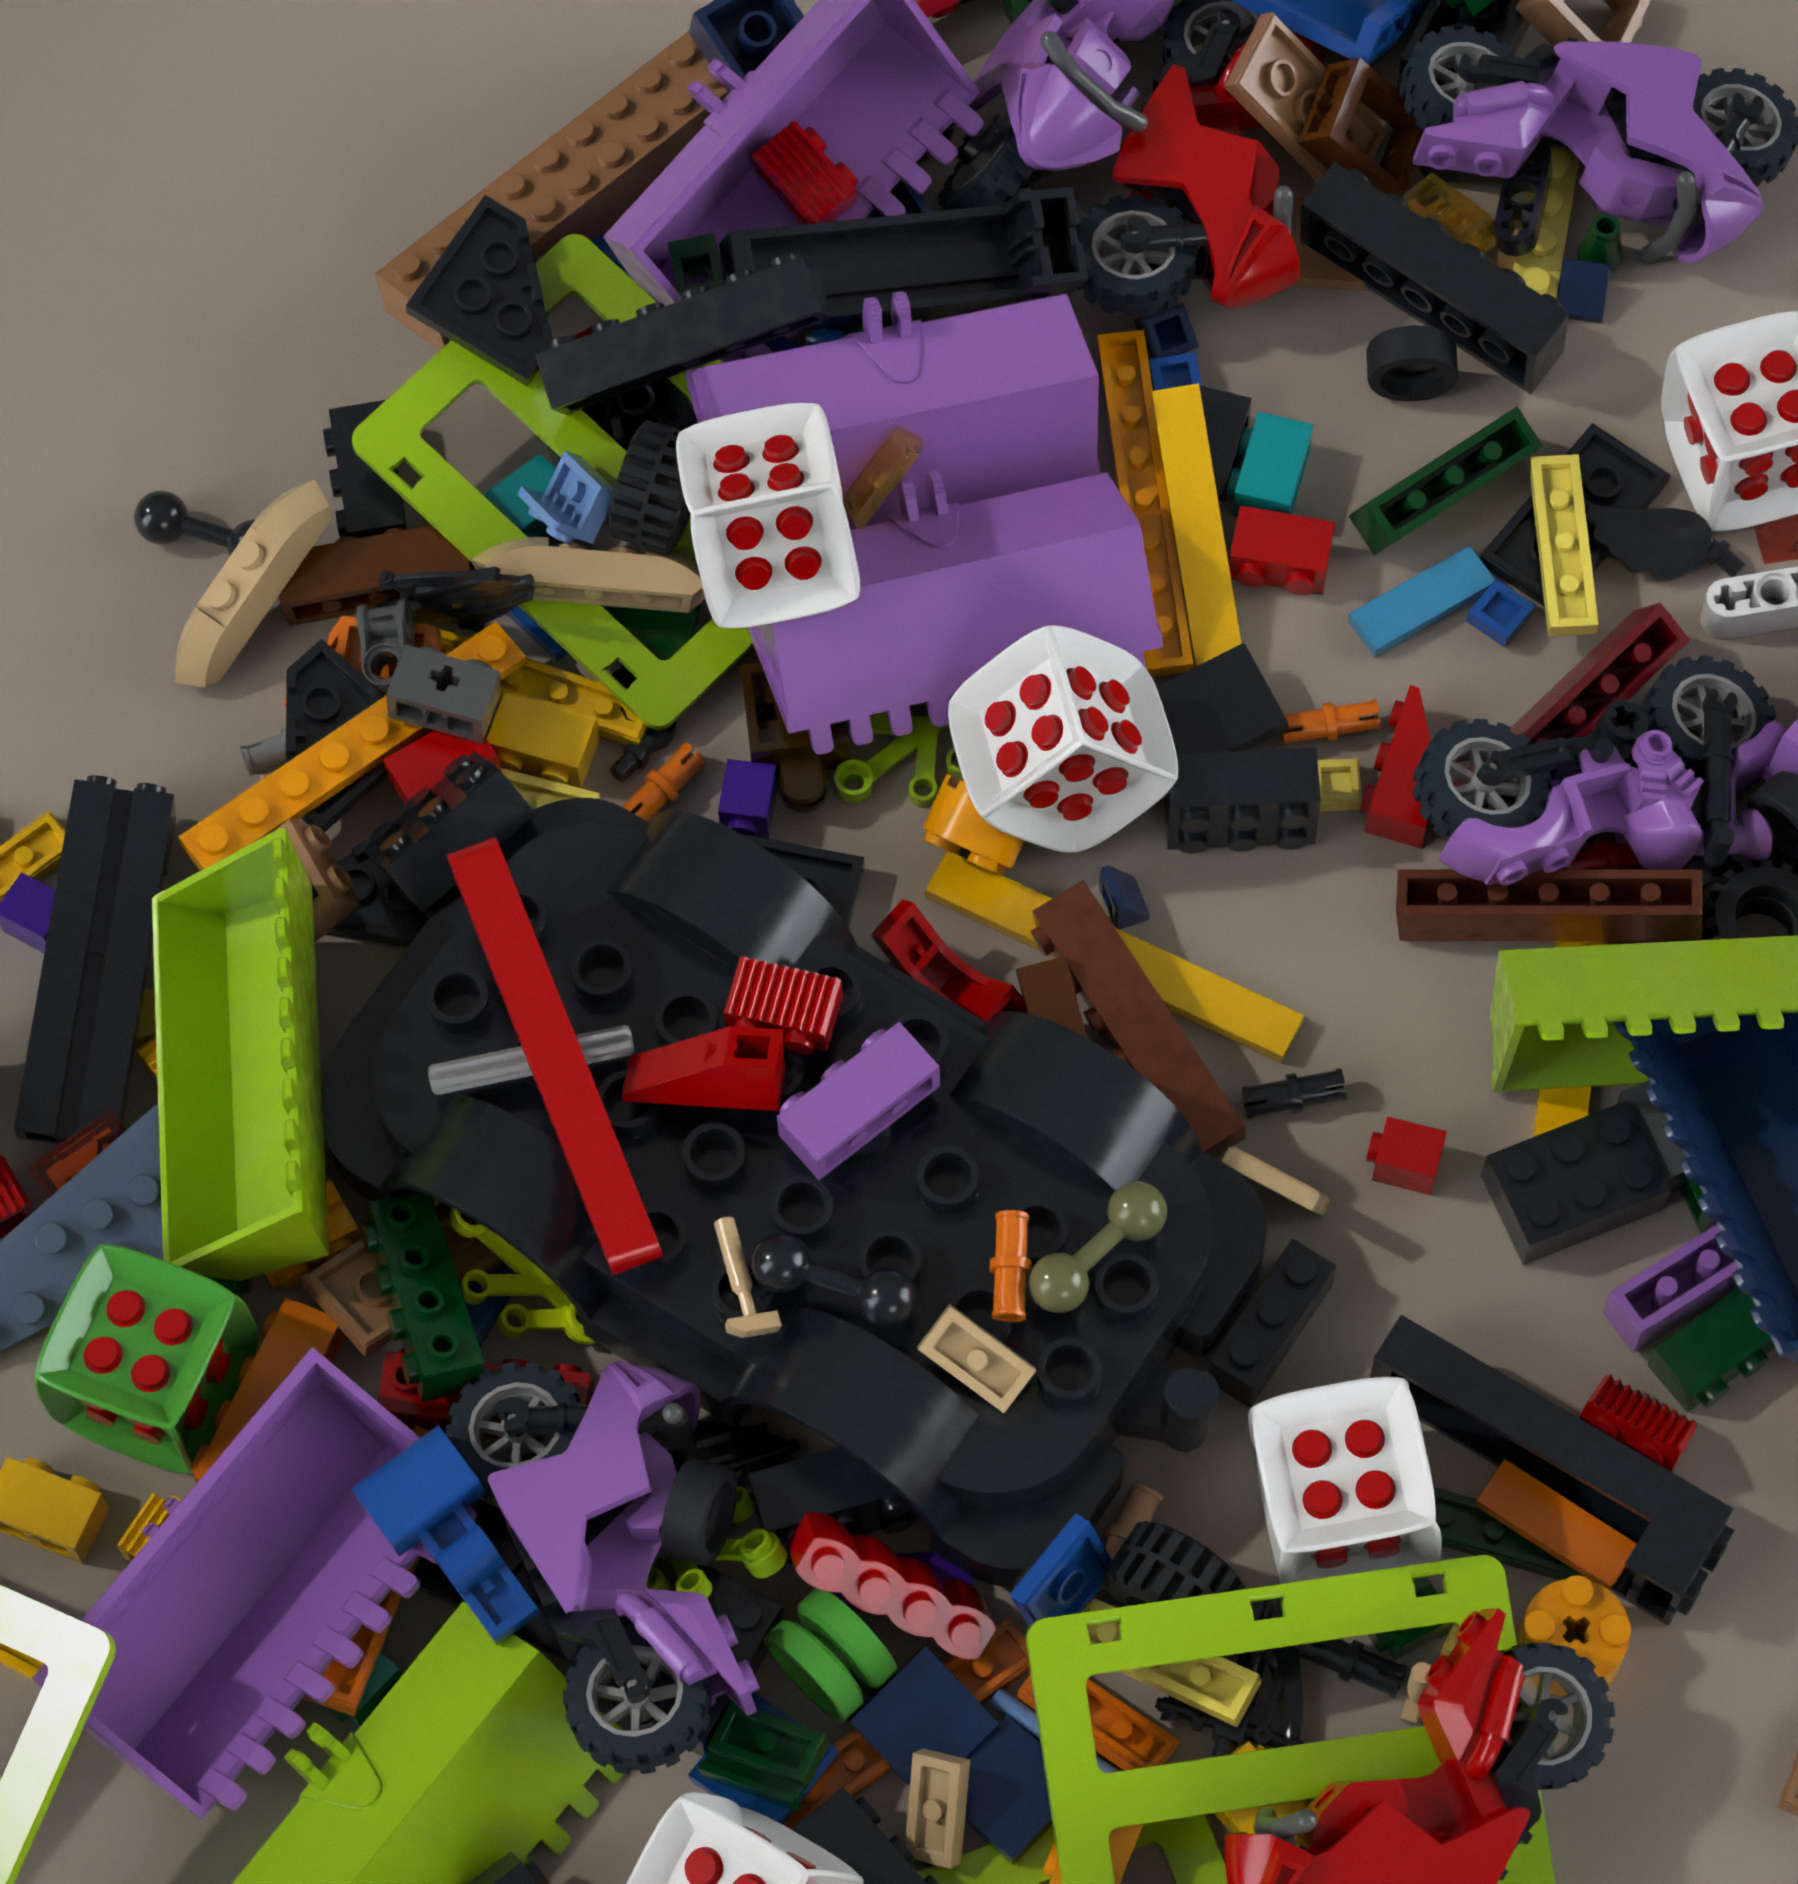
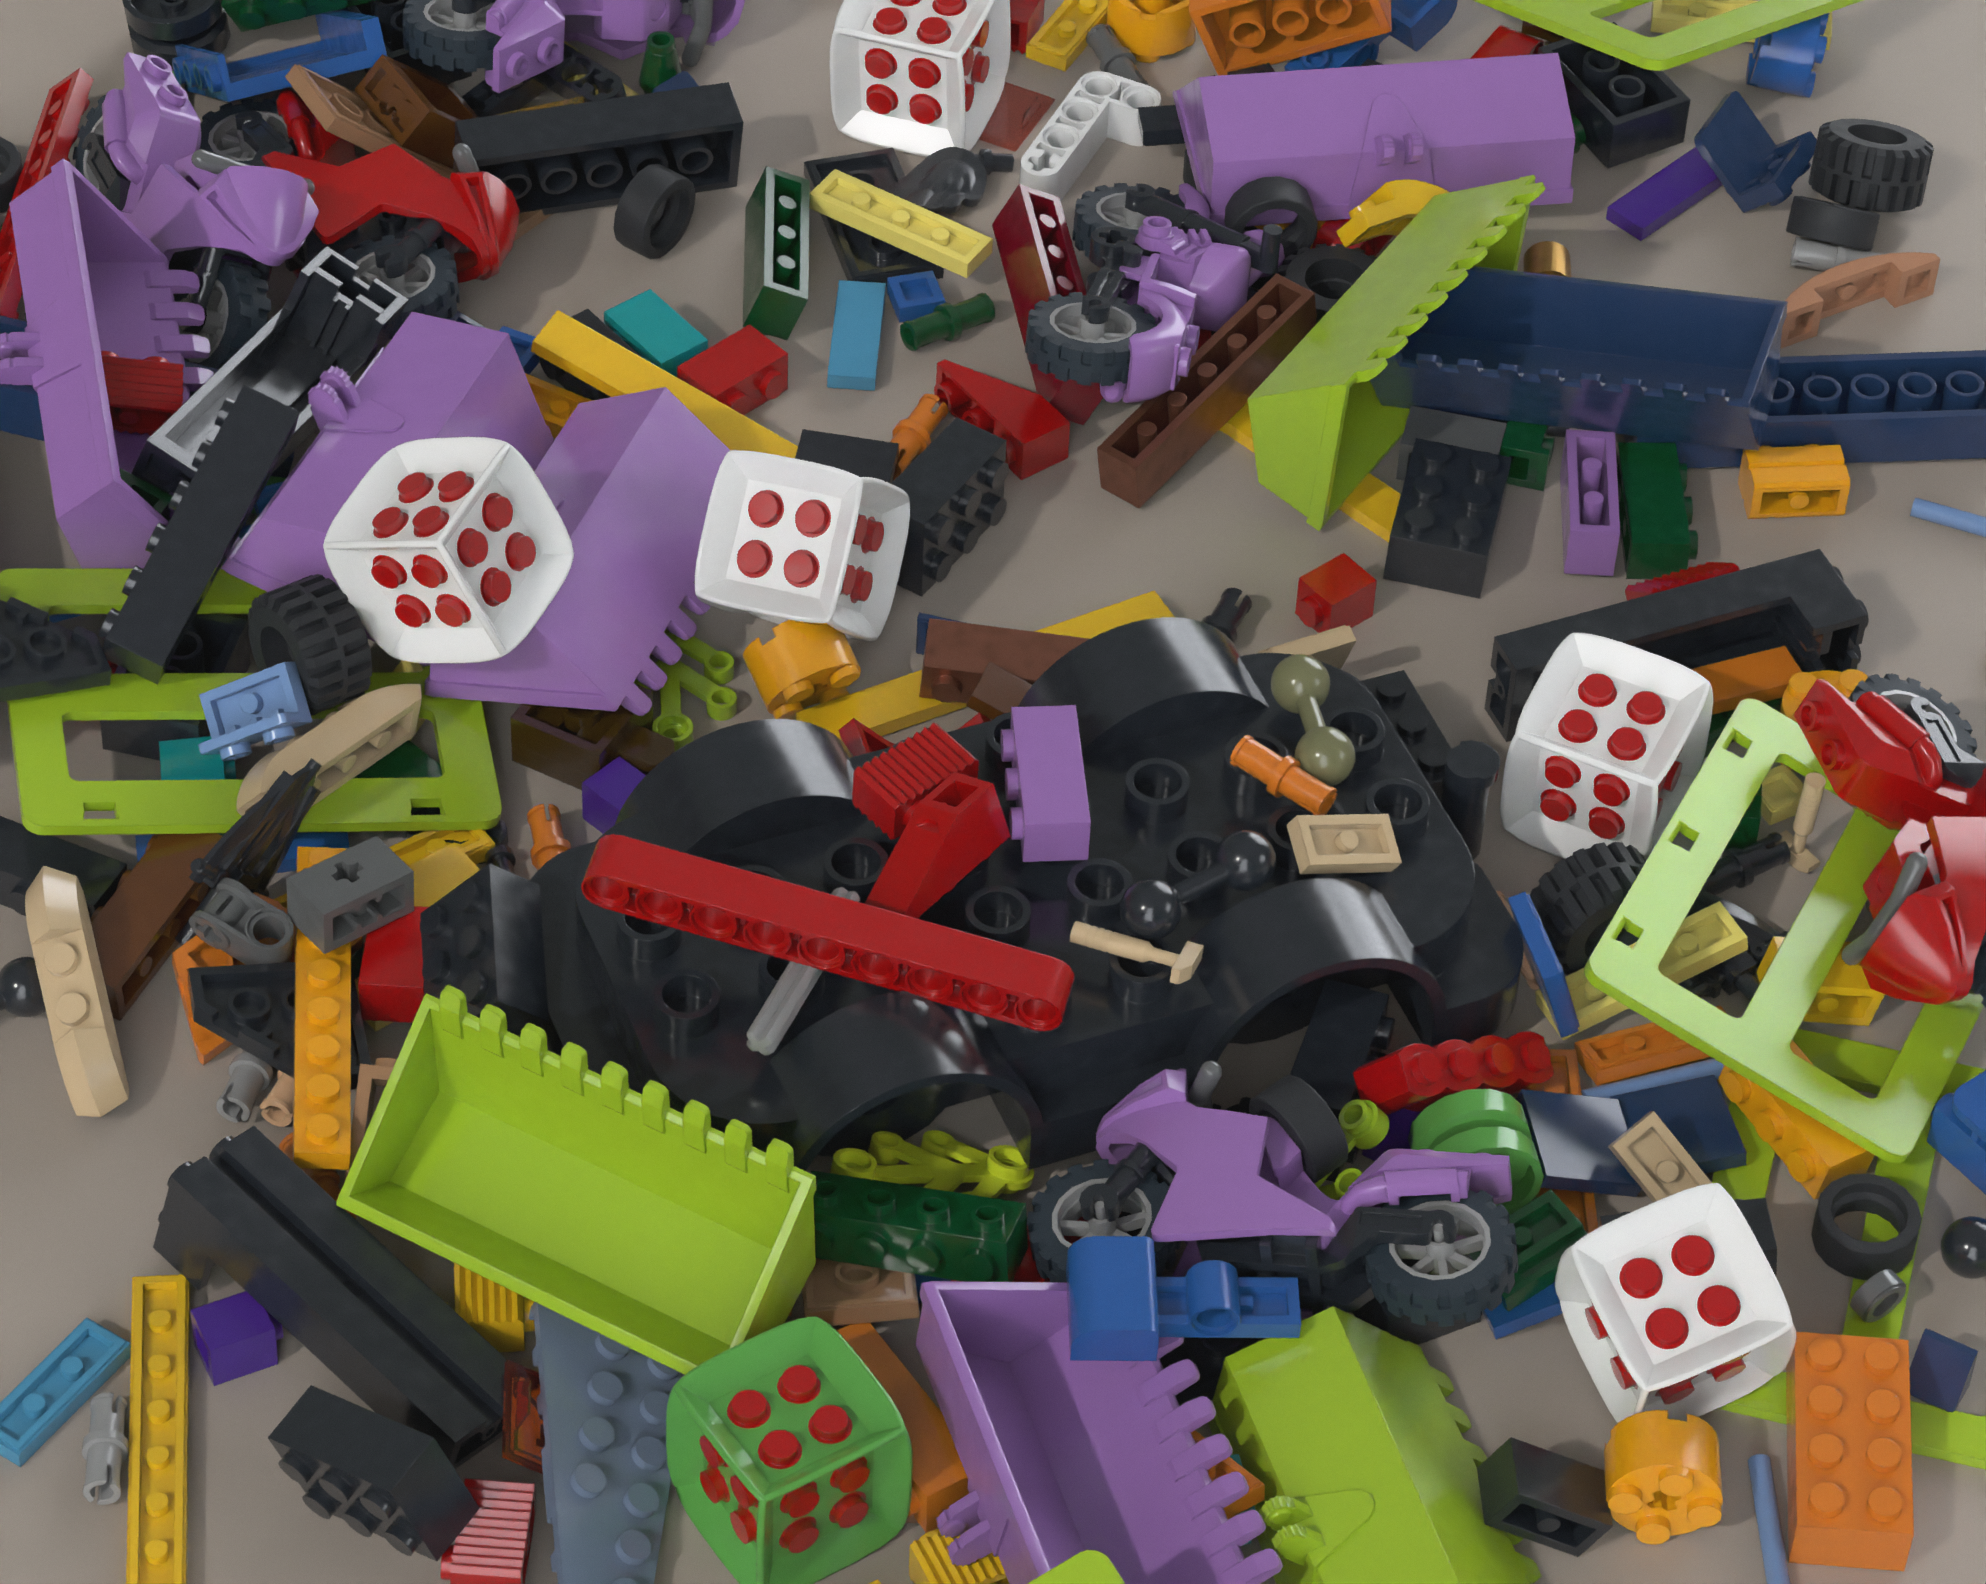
camera: 60 degrees left, 20 degrees down
(1491, 656) = (947, 321): none -> dark green pin

